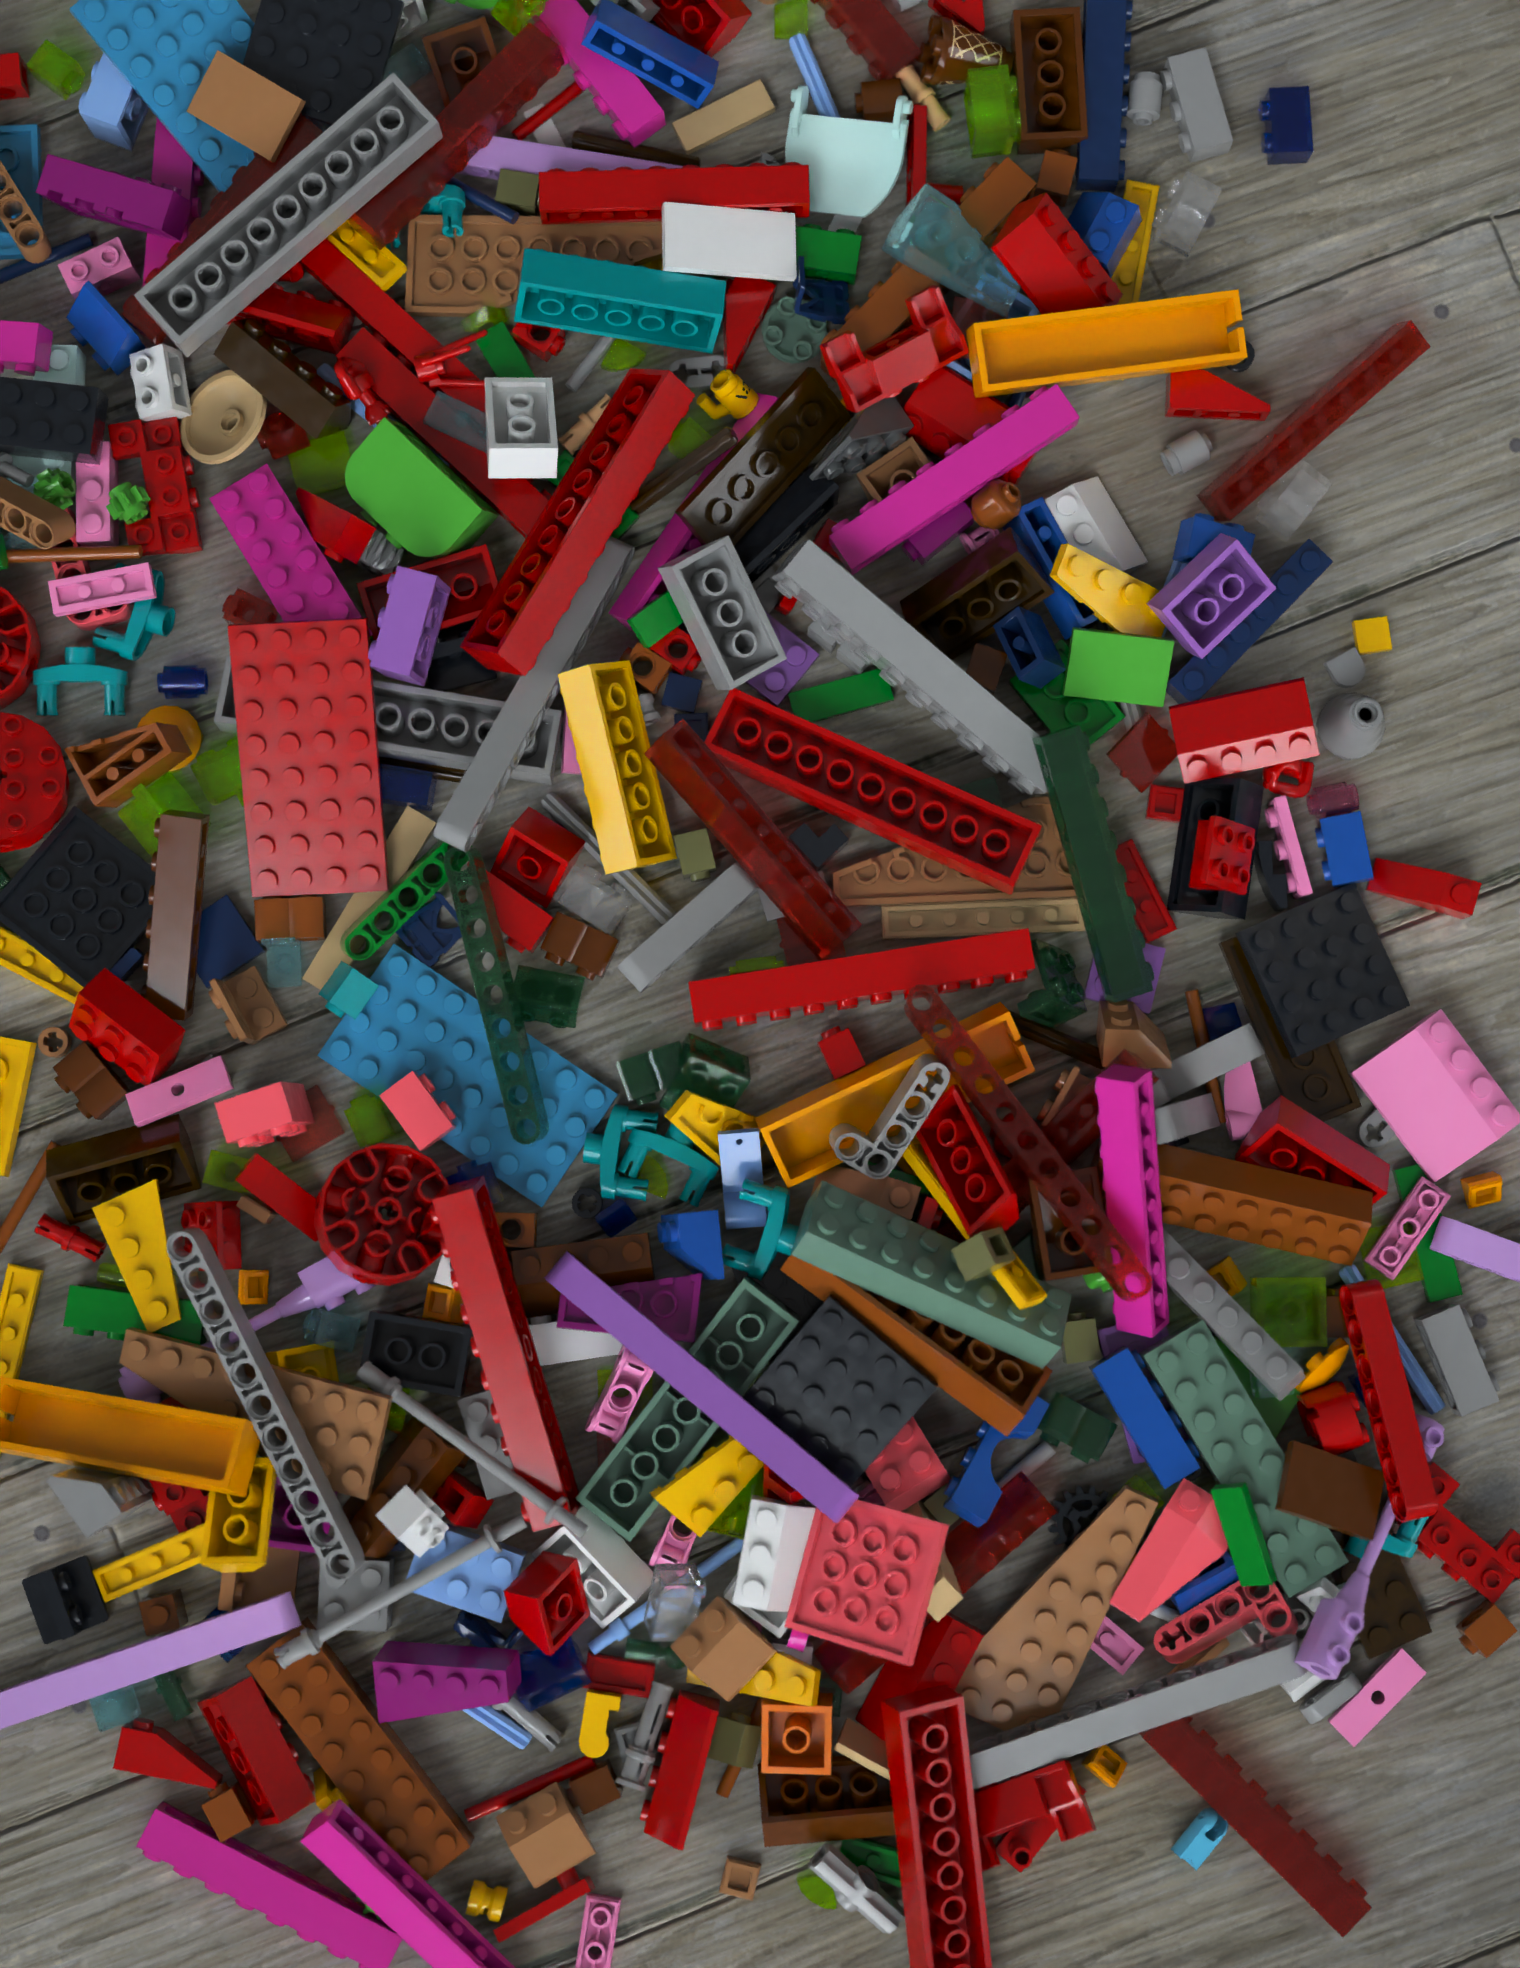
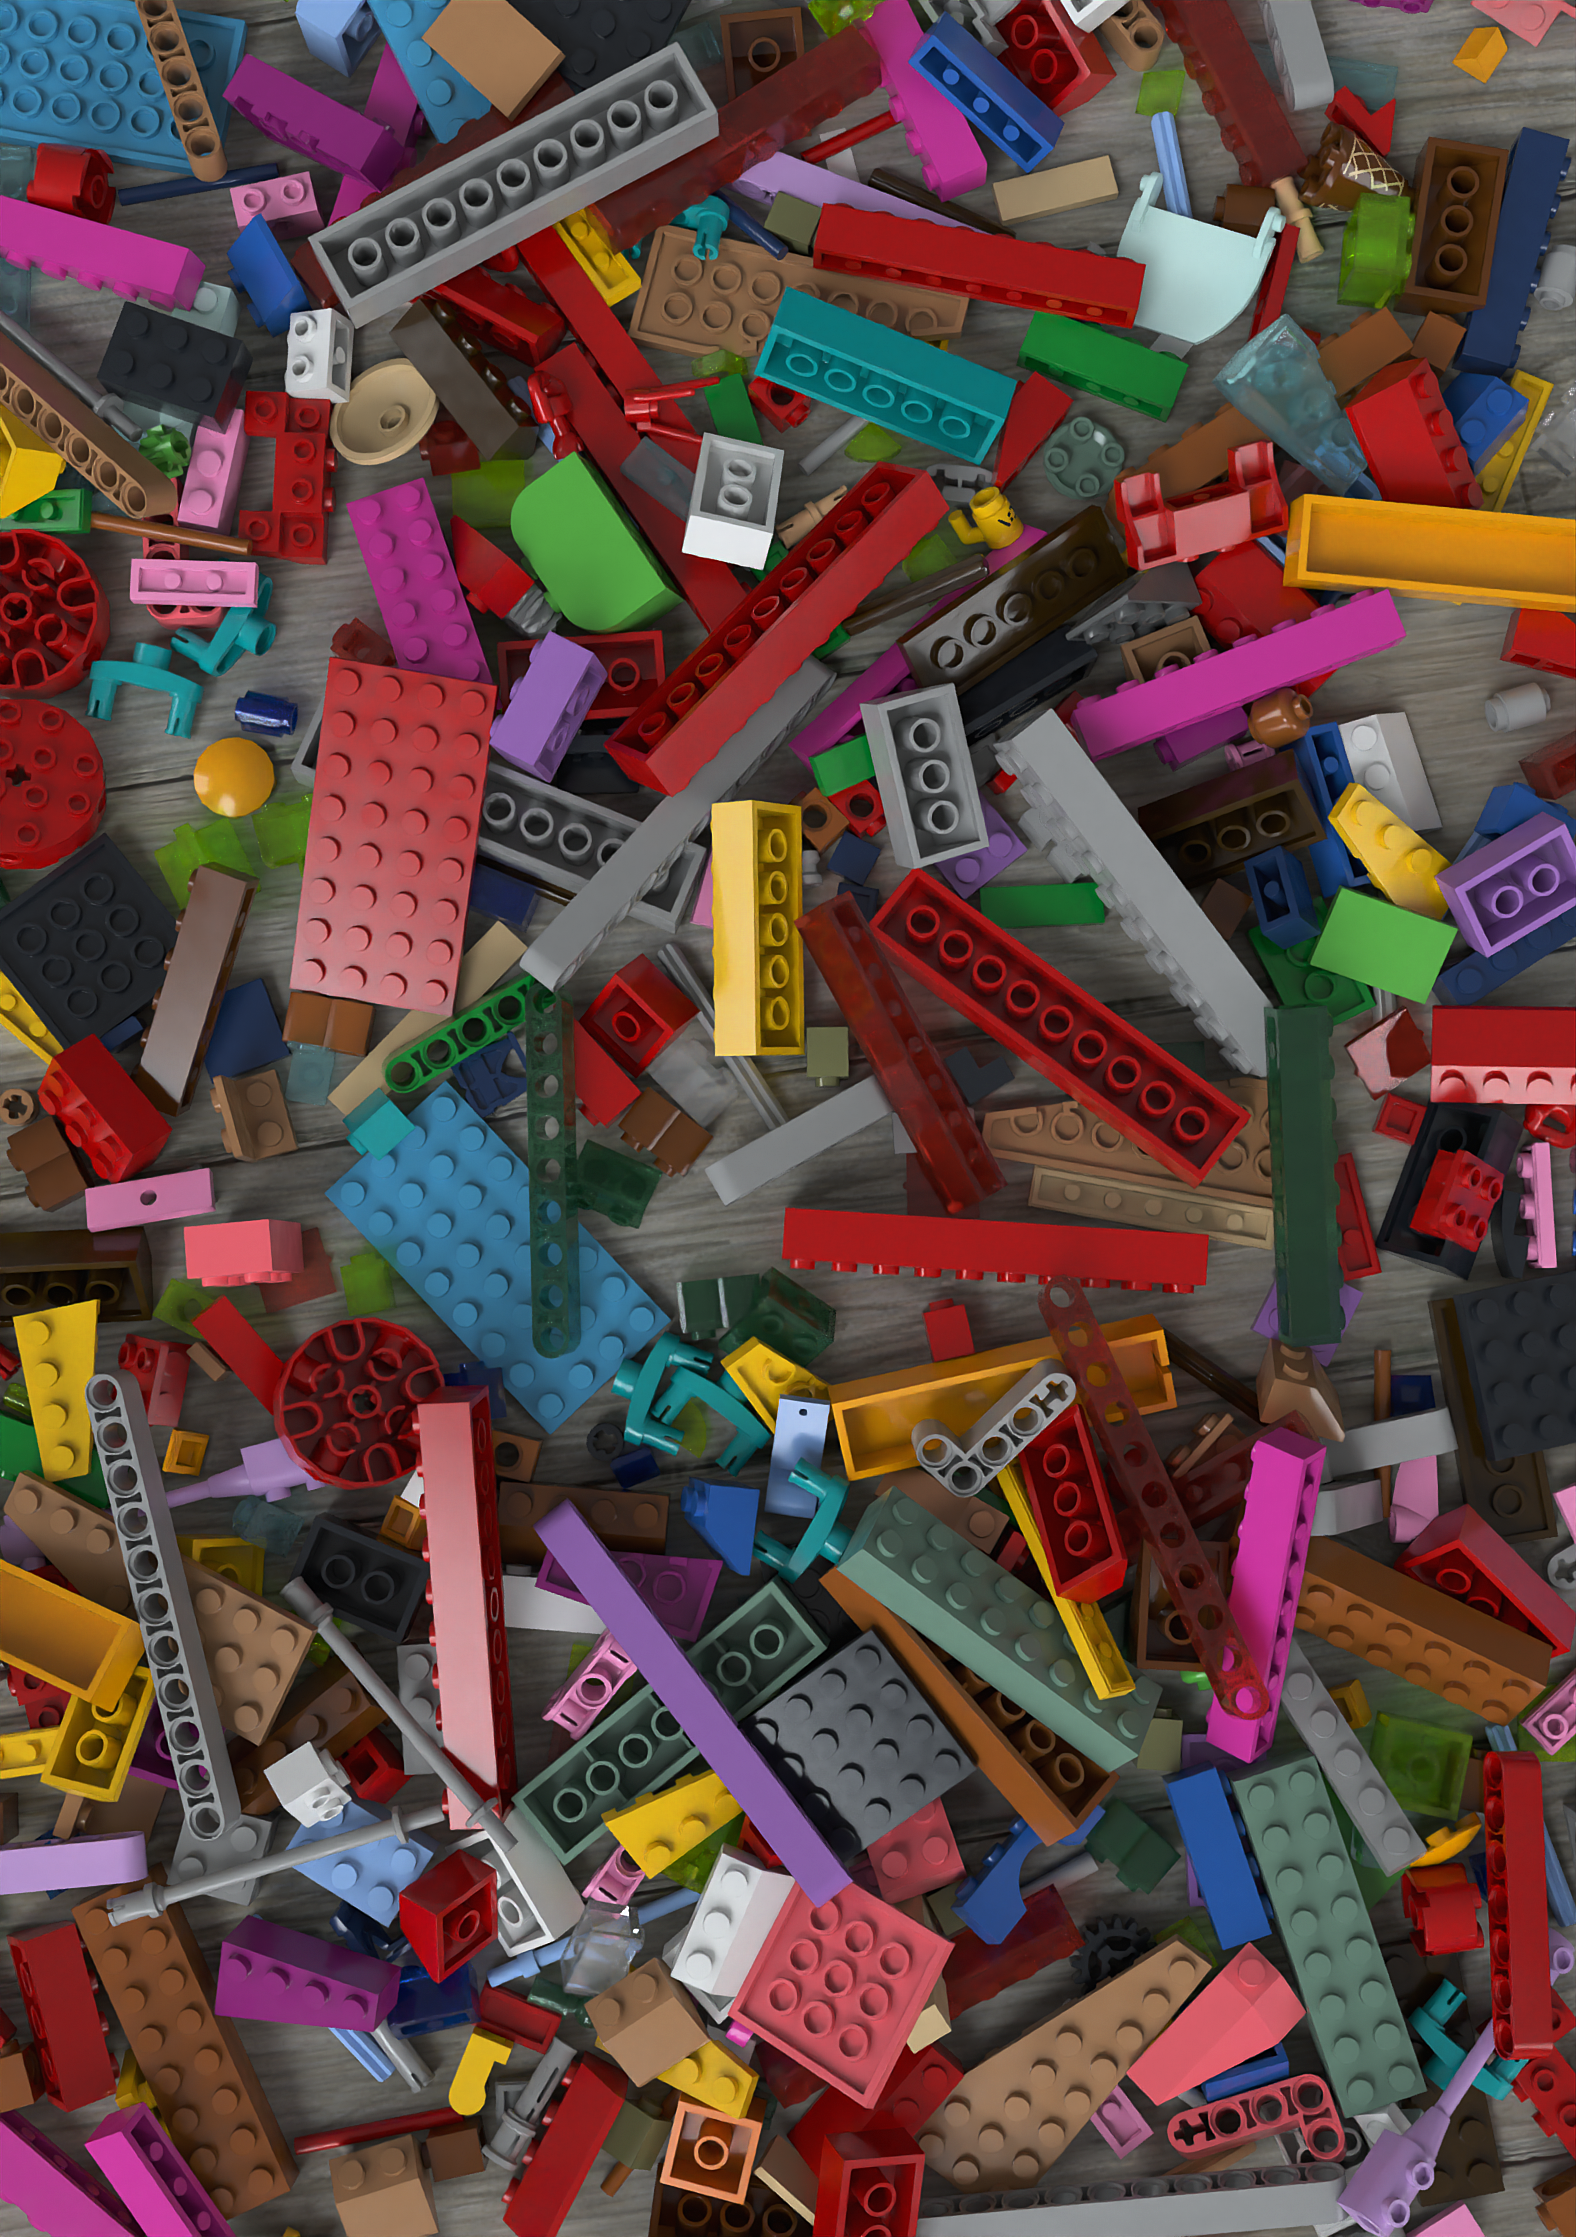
camera: 10 degrees right, 0 degrees up
(123, 761) = (178, 791): dark orange wedge -> none
(128, 503) = (248, 487): bright green gear -> none
(419, 1110) = (429, 1287): coral brick -> none
(728, 241) = (1030, 335): white tile -> none
(755, 964) = (870, 1204): clear neon green piece -> none
(827, 301) = (1131, 430): dark blue piece -> none
(983, 1254) = (1070, 1622): olive brick -> none
(1062, 994) = (1232, 1322): clear green bracket -> none
(1243, 1534) = (1307, 2029): green tile -> none
(1330, 1490) = (1424, 2000): reddish brown tile -> none

